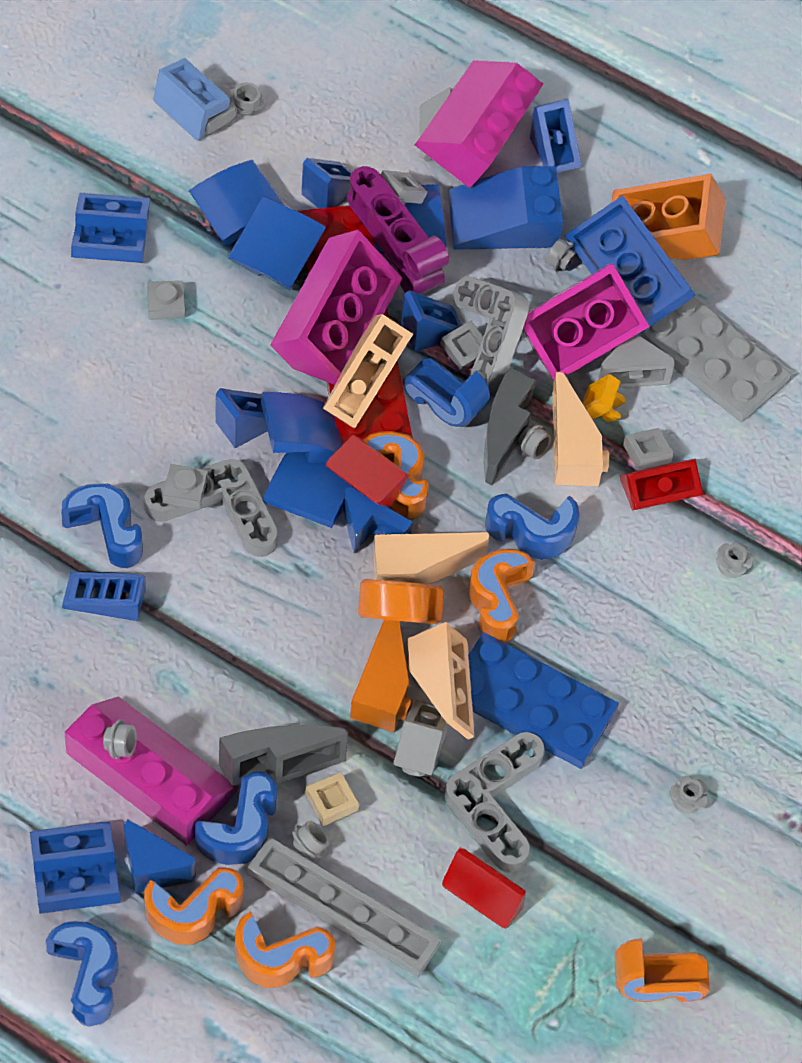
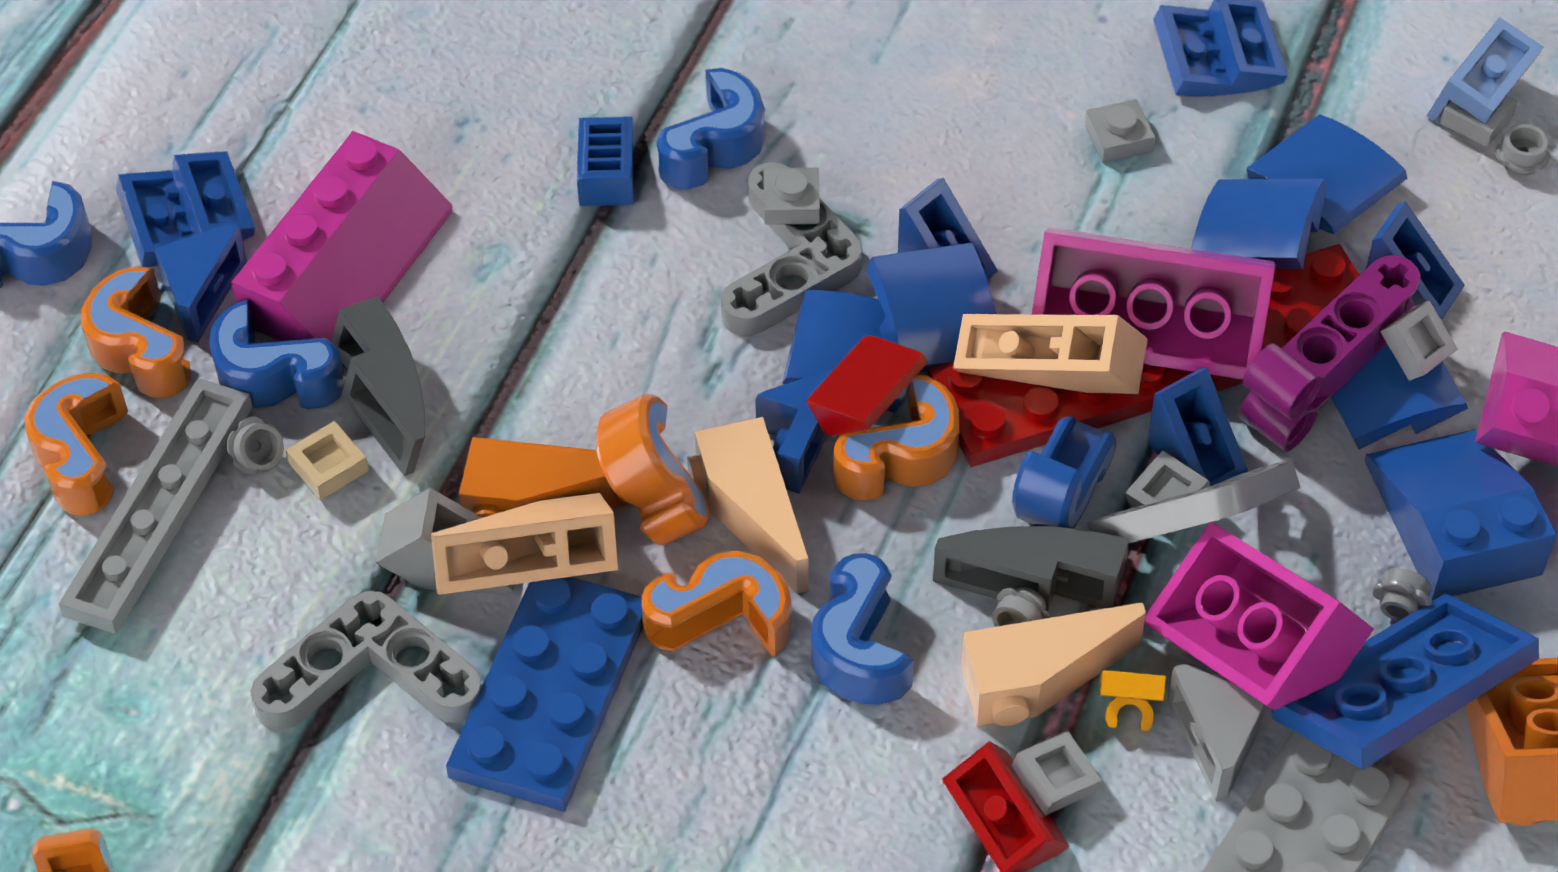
camera: 85 degrees right, 5 degrees down
(120, 740) = (329, 182): light grey plate -> none
(484, 888) = (213, 673): red slope -> none

